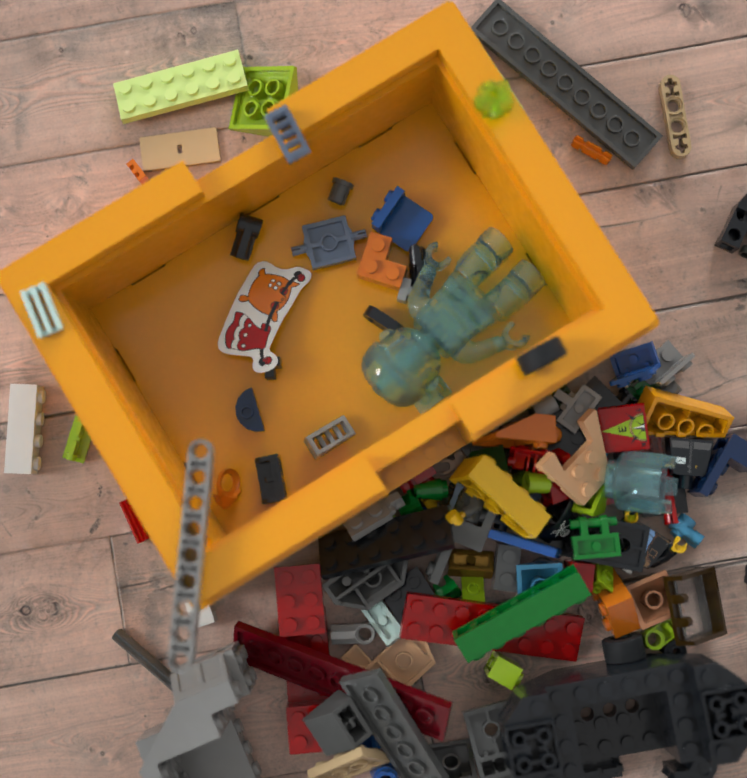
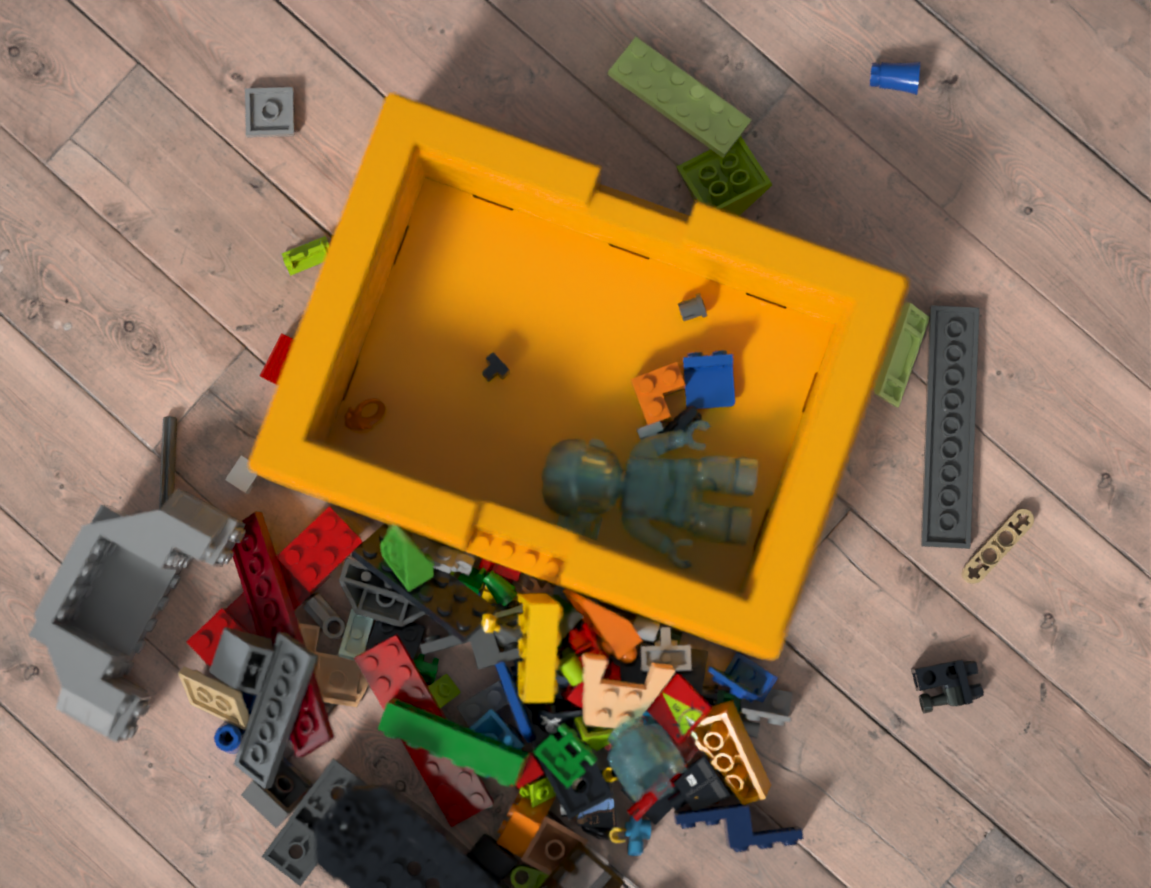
camera: 50 degrees right, 0 degrees up
(24, 429) = (279, 203): white brick -> none
(32, 313) = (379, 174): light aqua tile -> none
(137, 171) = (573, 127): orange tile -> none
(162, 152) = (610, 125): tan piece -> none
(184, 566) = (277, 430): light grey beam -> none
(247, 231) = (595, 257): black piece -> none
(248, 411) = (443, 380): dark blue plate -> none
(260, 311) = (534, 323): sticker -> none
(271, 478) = (401, 444): black hinge -> none
(276, 116) = (693, 215): sand blue slope -> none
(325, 430) = (458, 450): light grey slope -> none
(329, 242) = (640, 334): sand blue plate -> none
(359, 541) = (406, 558): none -> bright green wedge
(380, 319) = (609, 431): black beam -> none
(471, 563) = (464, 672): pearl gold slope -> none
(493, 99) = (854, 377): clear neon green brick -> none
(503, 670) = (395, 768): lime brick -> none
(541, 355) = (665, 579): black tyre -> none
(591, 150) = (909, 496): orange axle -> none

